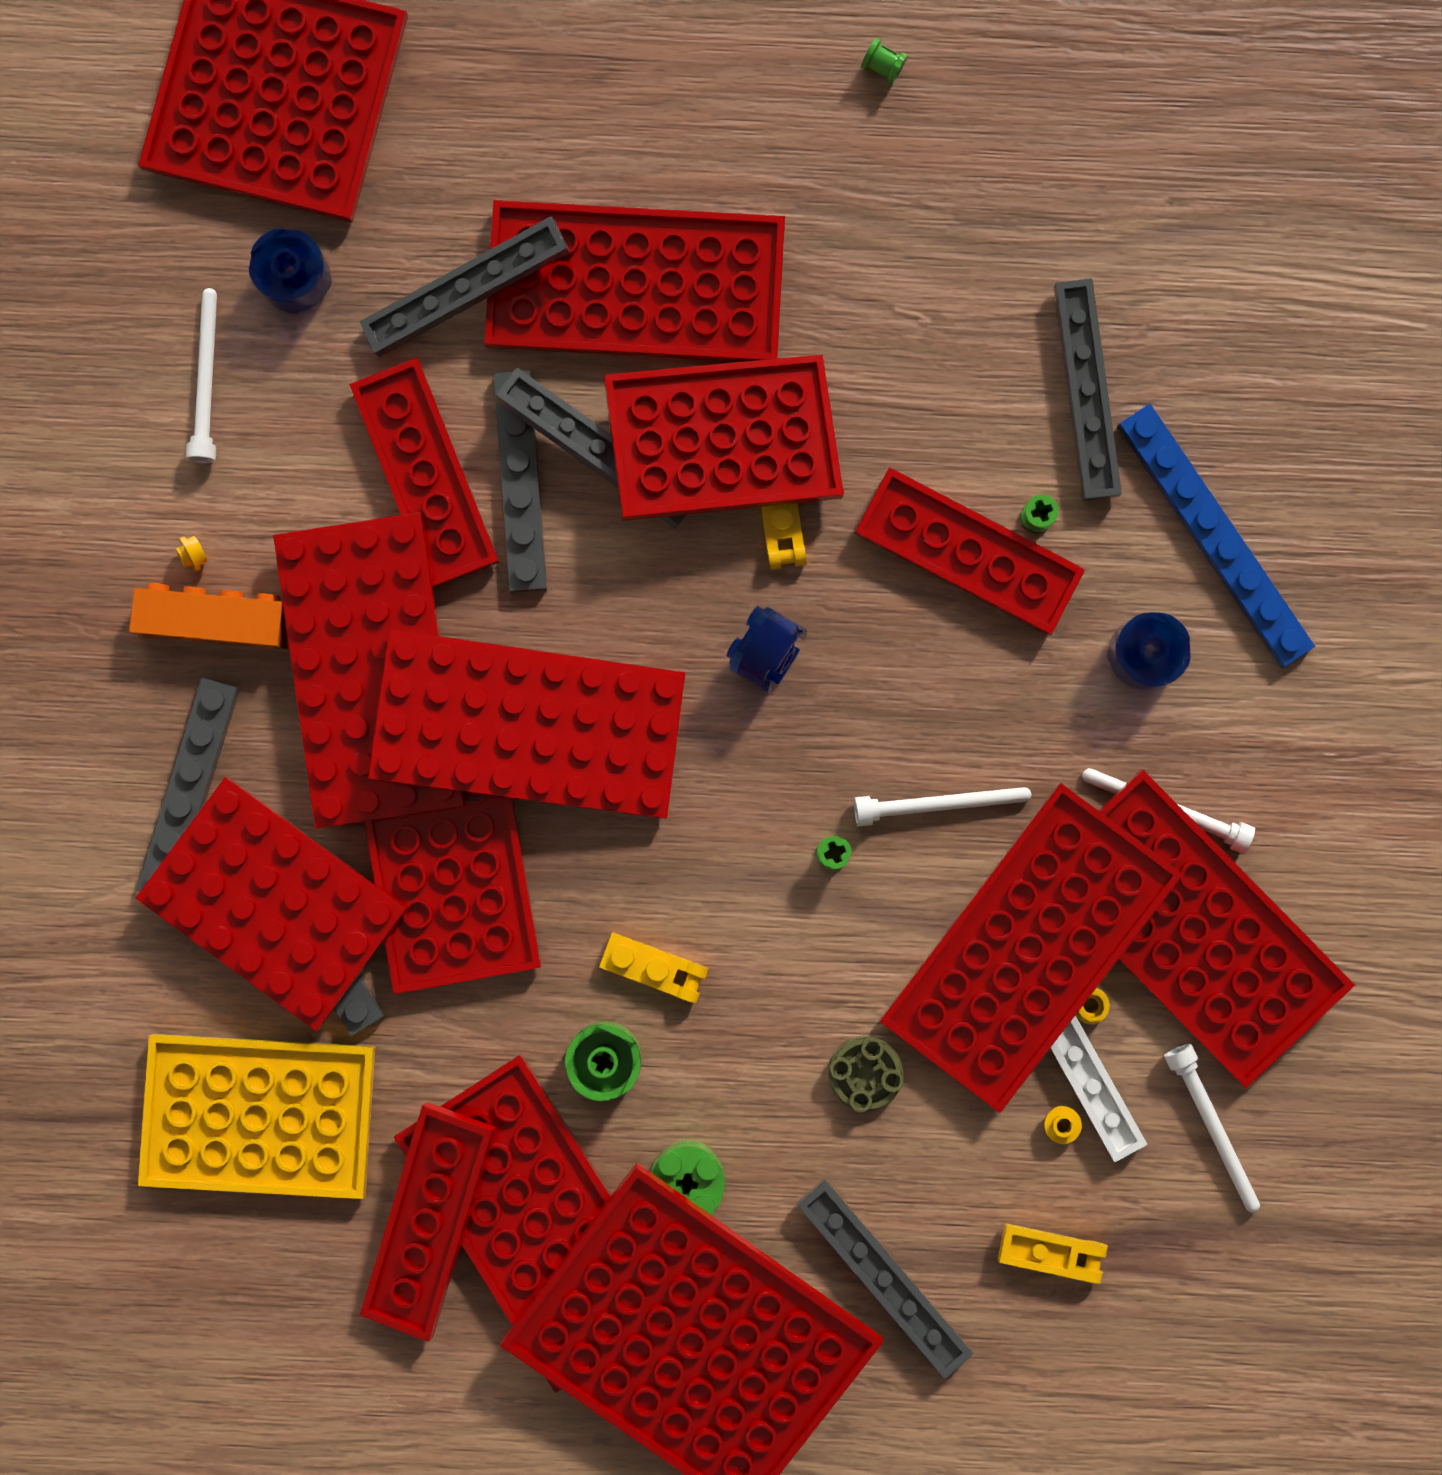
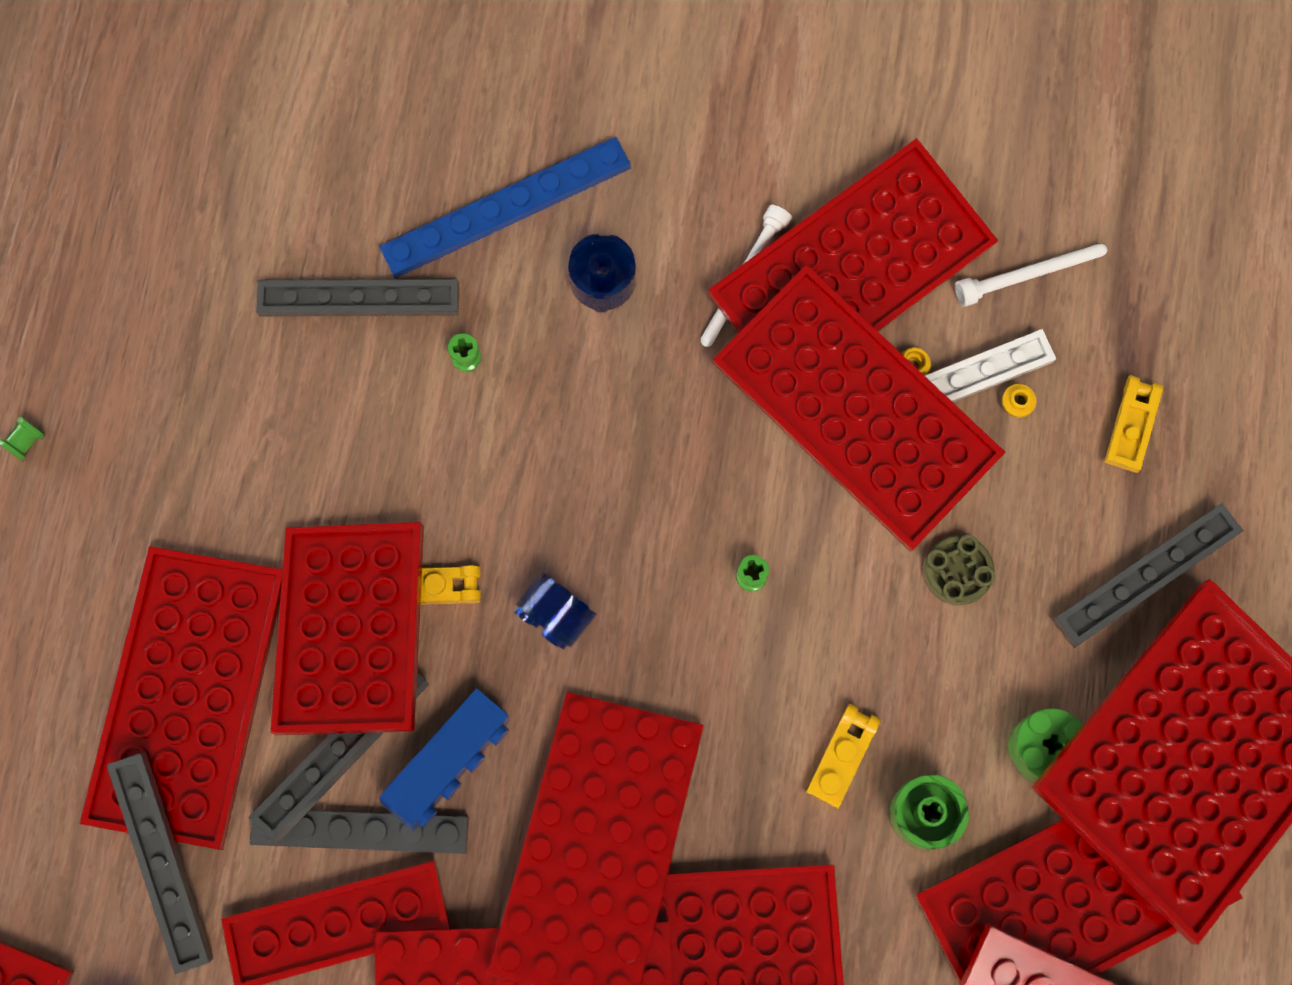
camera: 80 degrees left, 10 degrees down
(599, 557) = (444, 760): none -> blue brick
(871, 810) = (717, 538): white piece -> none
(969, 551) = (489, 419): red plate -> none

